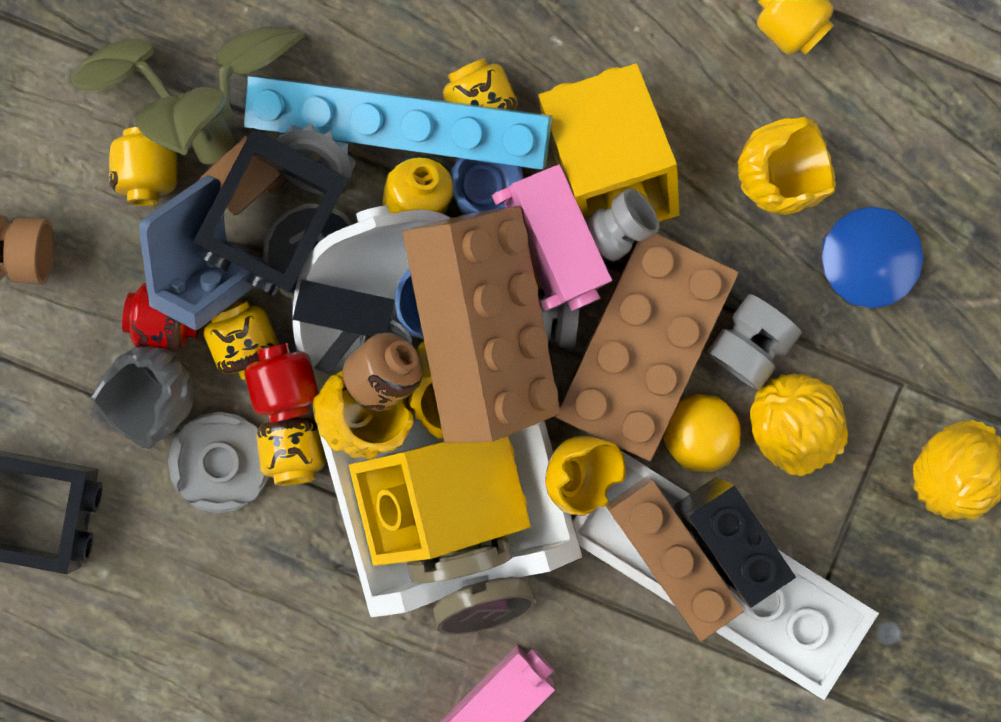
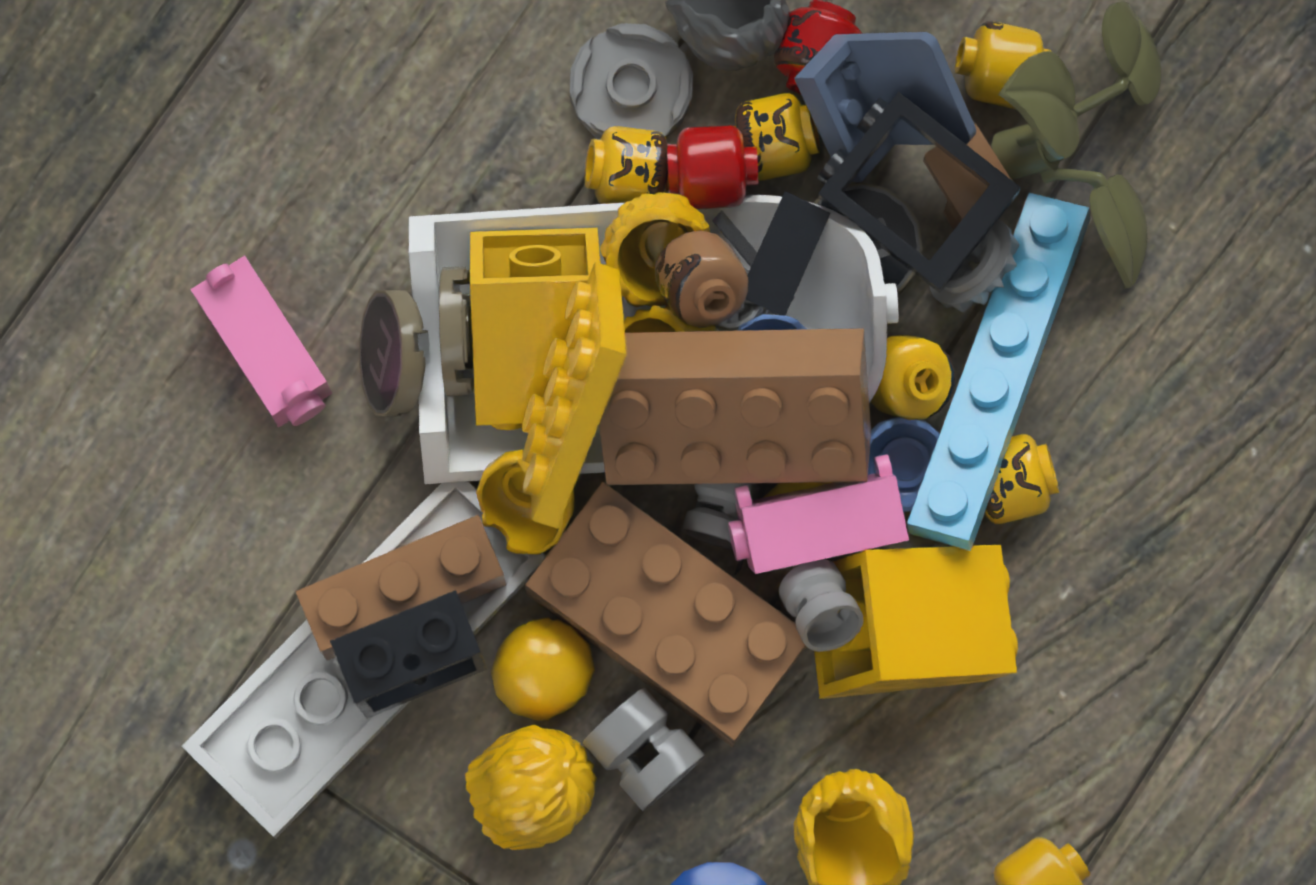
camera: 100 degrees right, 10 degrees down
(508, 453) = (576, 395): none -> yellow plate

